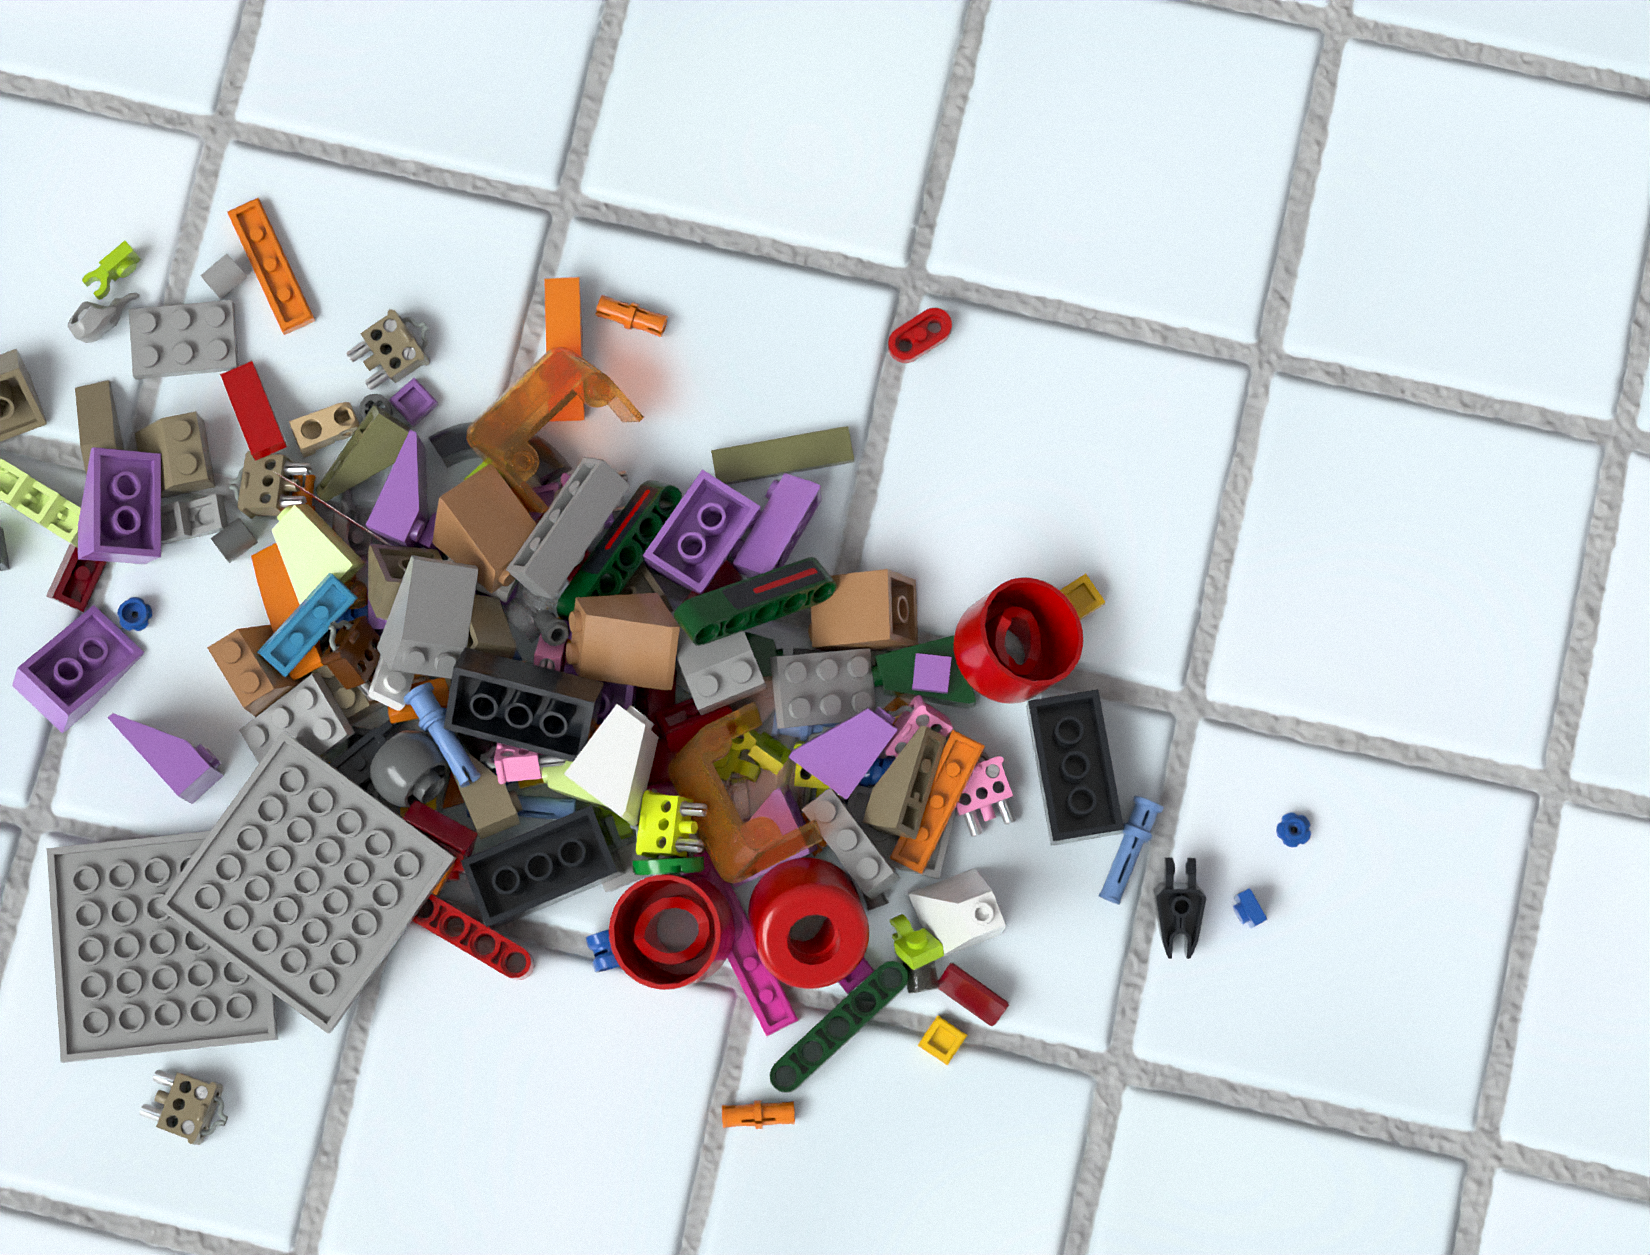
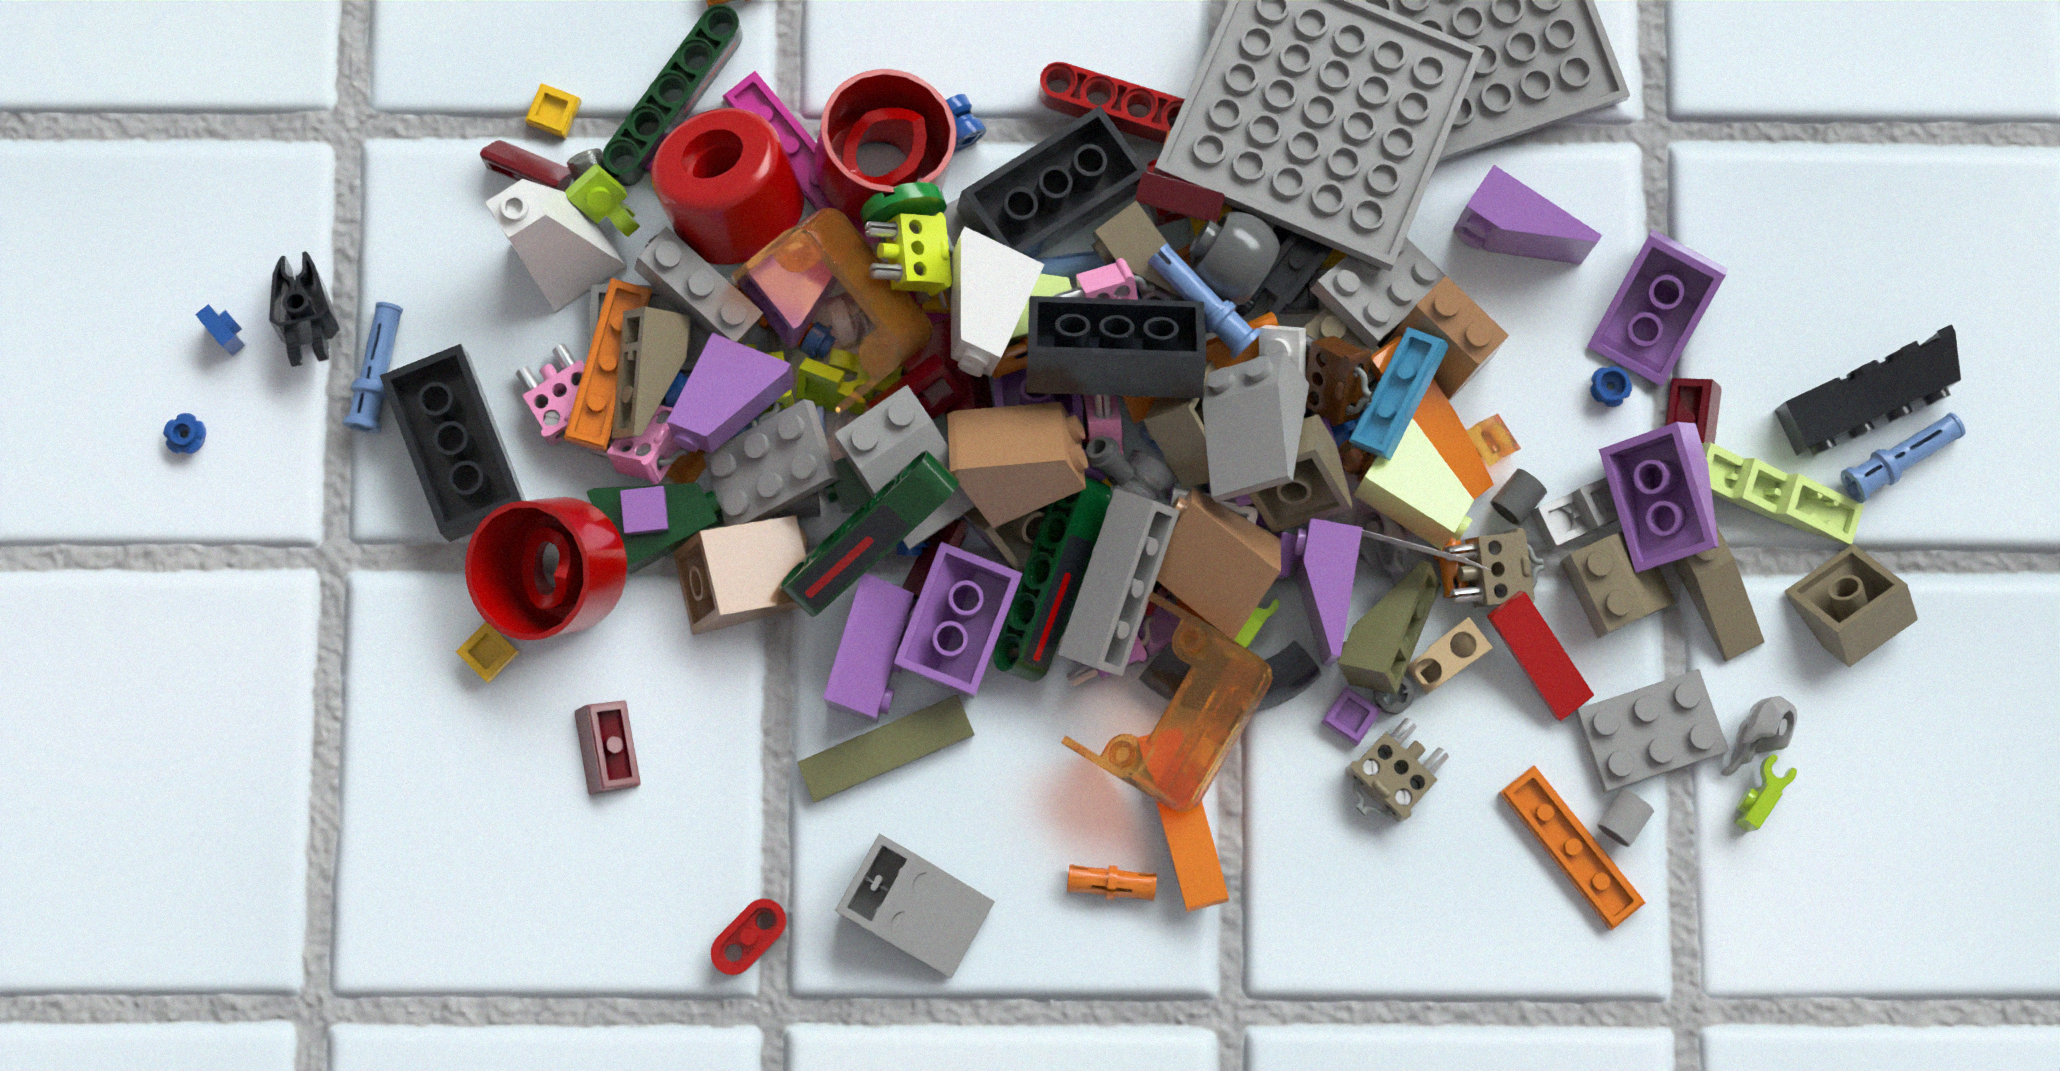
camera: 160 degrees right, 0 degrees up
(241, 589) = (1493, 440): none -> clear orange plate
(762, 789) = (818, 341): none -> blue plate
(788, 329) = (914, 905): none -> light grey slope
(1001, 505) = (607, 747): none -> slope

